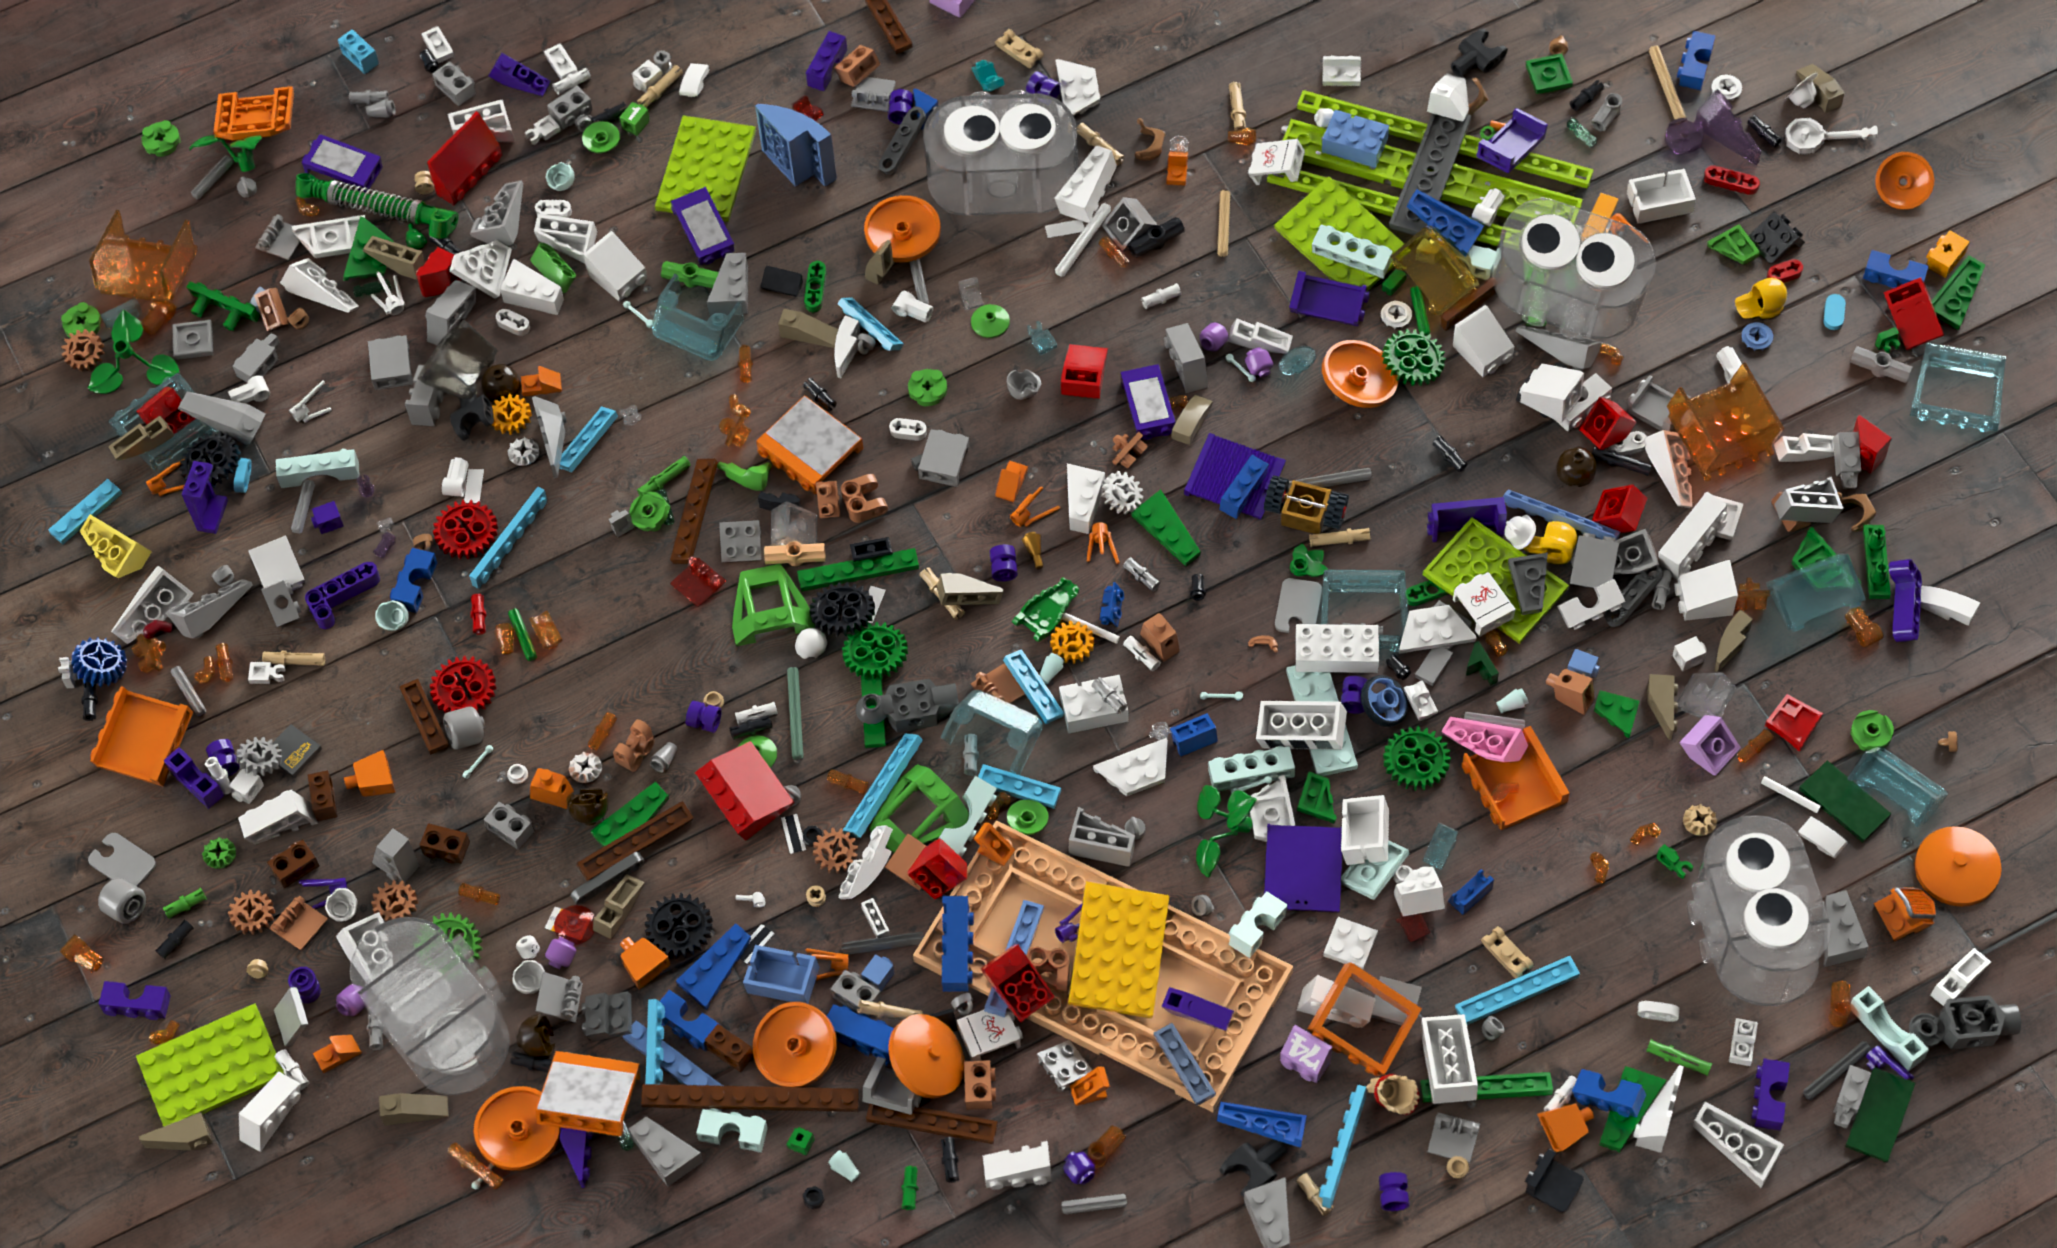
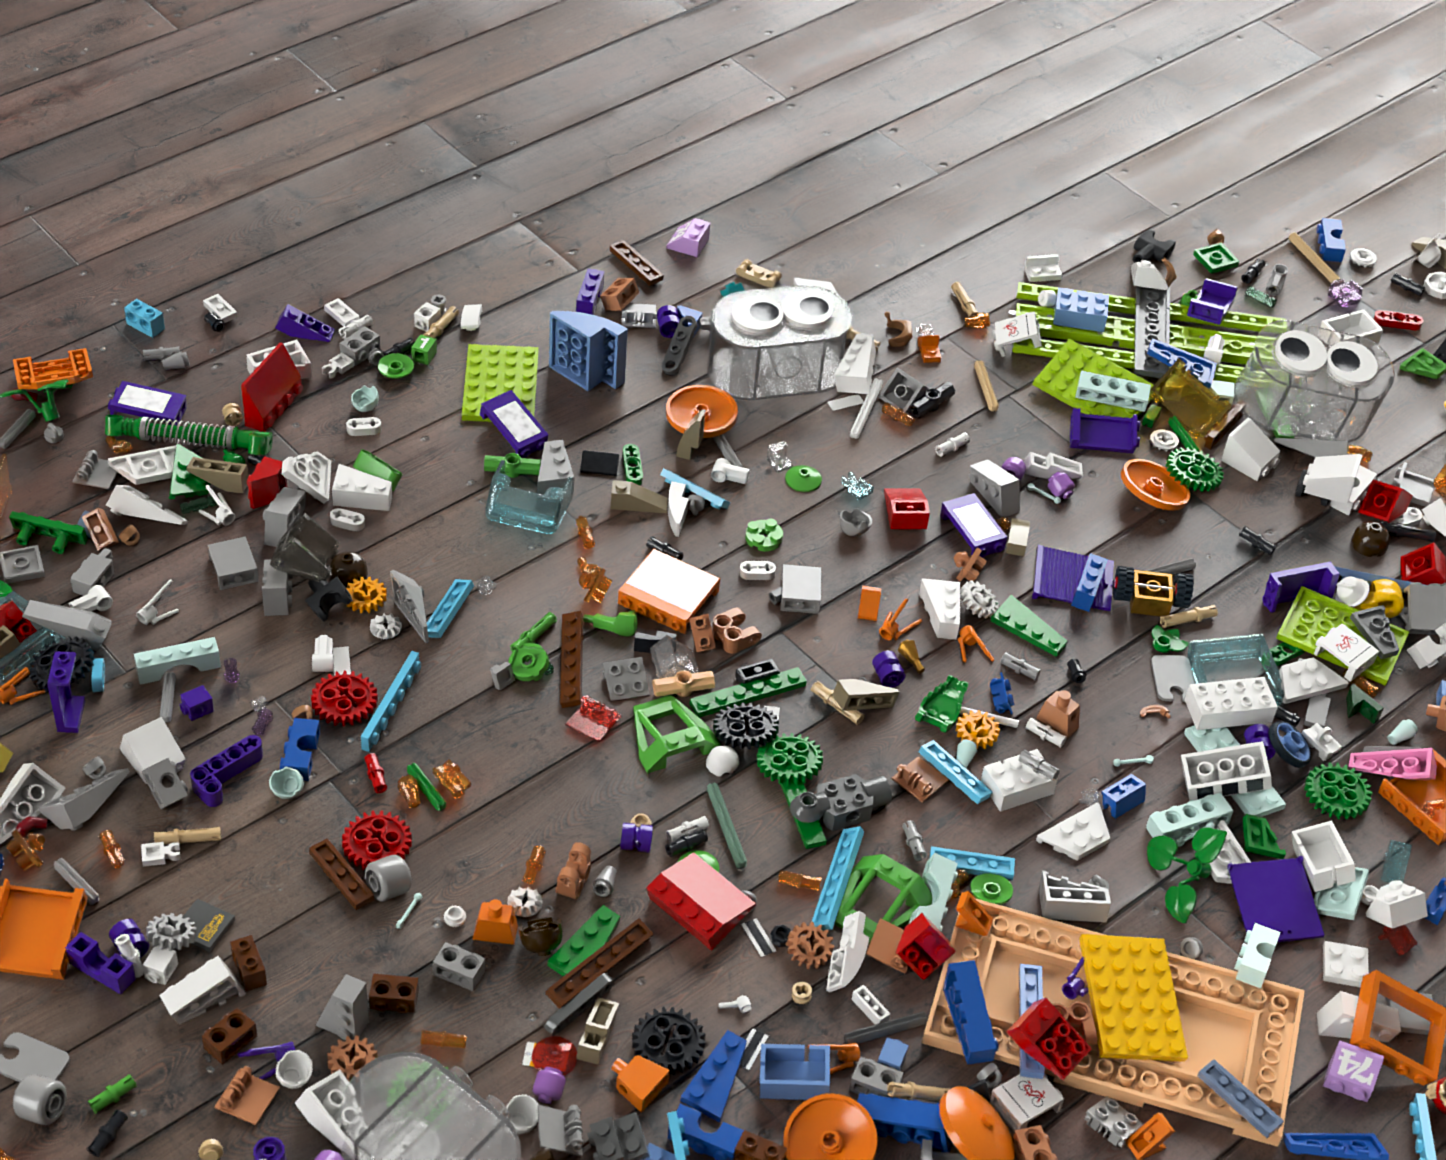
camera: 20 degrees left, 15 degrees down
(209, 670) = (94, 861): clear orange arm -> none
(225, 857) = (150, 1041): bright green gear -> none
(259, 915) = (180, 1096): nougat gear -> none
(371, 775) = (298, 937): orange torso -> none
(454, 83) = (243, 336): light grey brick -> none
(502, 217) = (315, 434): light grey wedge -> none
(527, 947) = (511, 1084): white piece -> none
(542, 383) = (381, 568): orange slope -> none
(566, 234) = (386, 442): white wedge -> none
(614, 267) = (438, 463): white slope -> none
(626, 304) = (481, 509): light aqua hinge -> none
(1023, 725) = (914, 790): clear light blue windscreen -> none
(1197, 1009) = (1231, 1043): dark purple slope -> none
(1297, 360) = (1094, 480): clear light blue dish -> none
(1723, 127) = (1381, 282): clear purple wedge -> none

